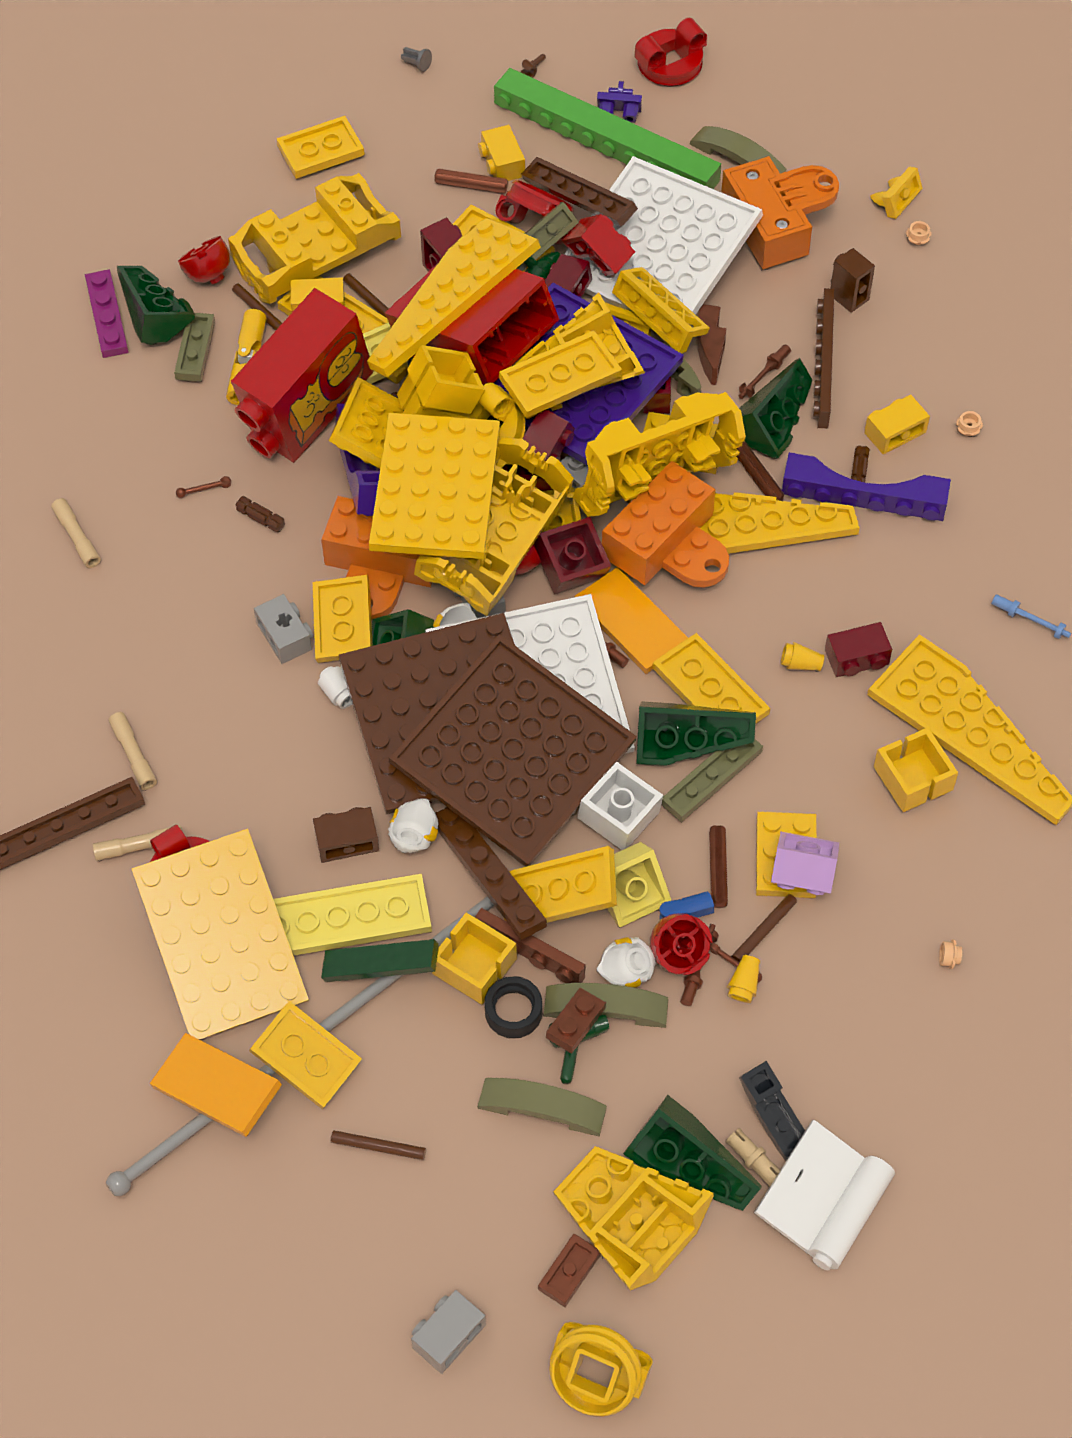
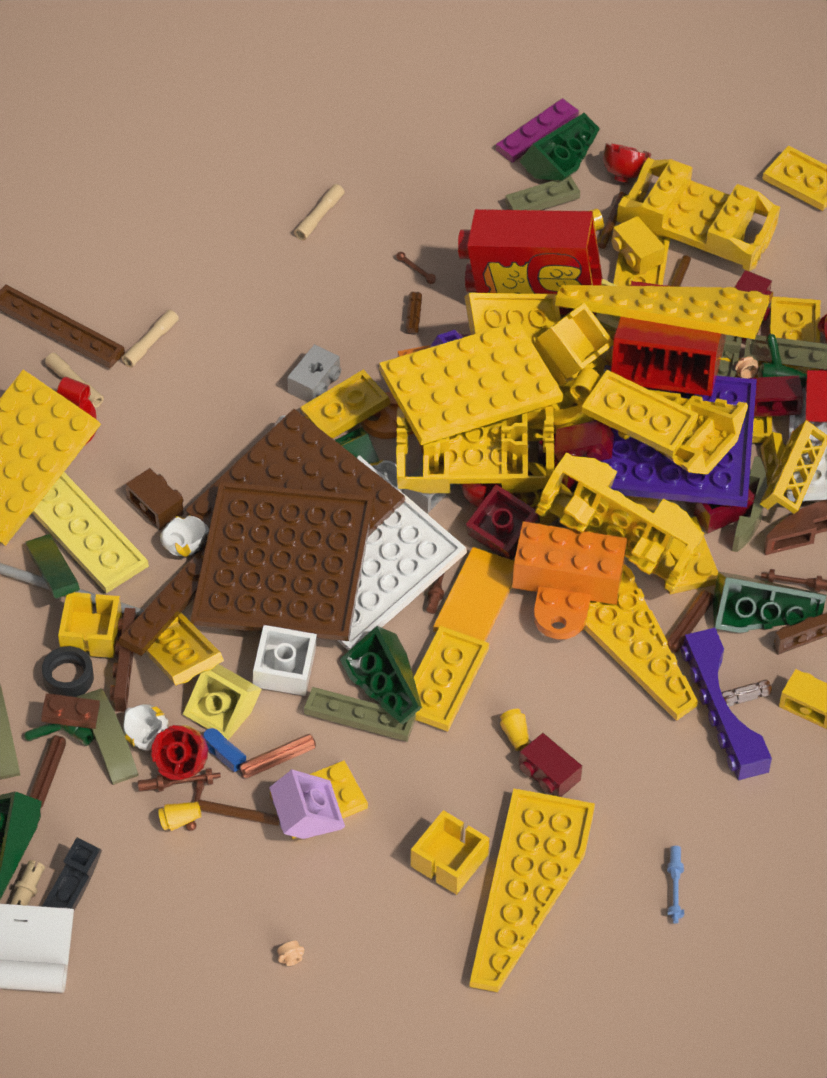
camera: 60 degrees right, 5 degrees down
(621, 1079) = (48, 768): none -> copper axle

